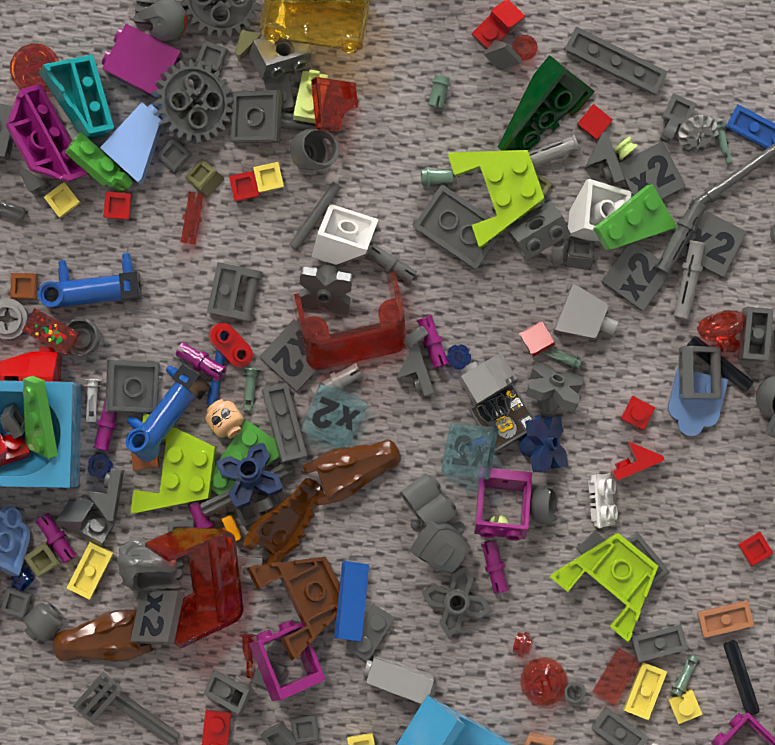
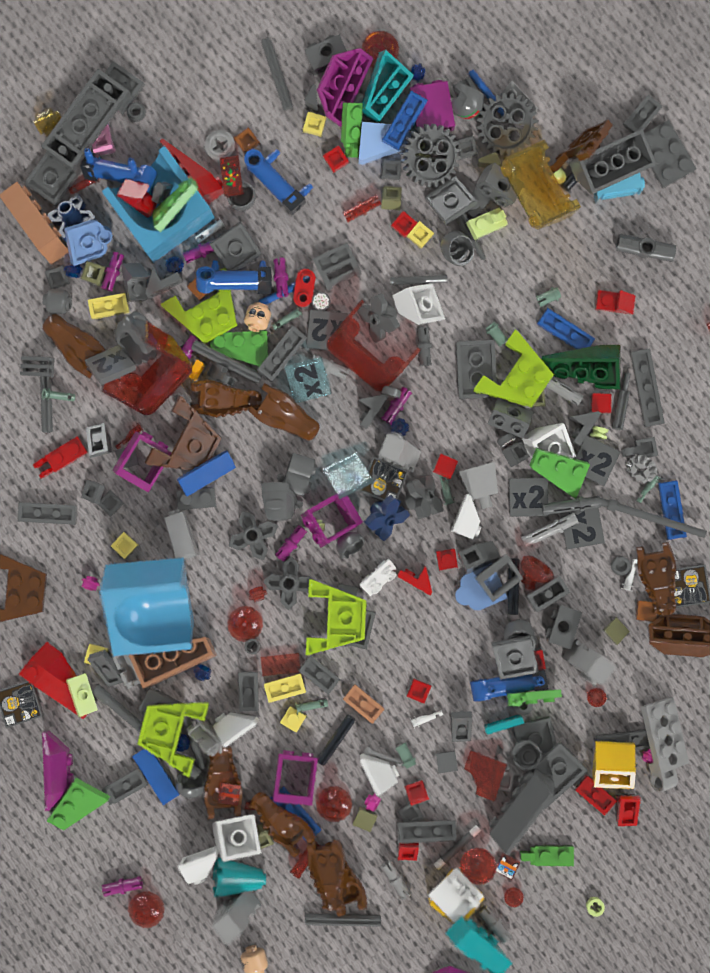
camera: 55 degrees right, 0 degrees up
(90, 46) = (418, 72): none -> clear blue plate
(134, 101) = (404, 120): none -> blue tile
(137, 707) = (56, 395): none -> sand green piece
(244, 486) = (234, 356): dark blue plant -> none
(259, 338) = (321, 301): none -> tile
(332, 101) = (493, 237): clear red tile -> none
(488, 101) = (565, 330): none -> blue tile
(502, 55) = (598, 317): dark grey slope -> none
(525, 47) = (613, 328): clear red plate -> none
(527, 612) = (278, 582): none -> dark grey plant
(612, 360) = (467, 519): none -> white slope
(613, 101) = (621, 406): none -> dark grey axle
(660, 377) = (478, 556): none -> dark grey slope

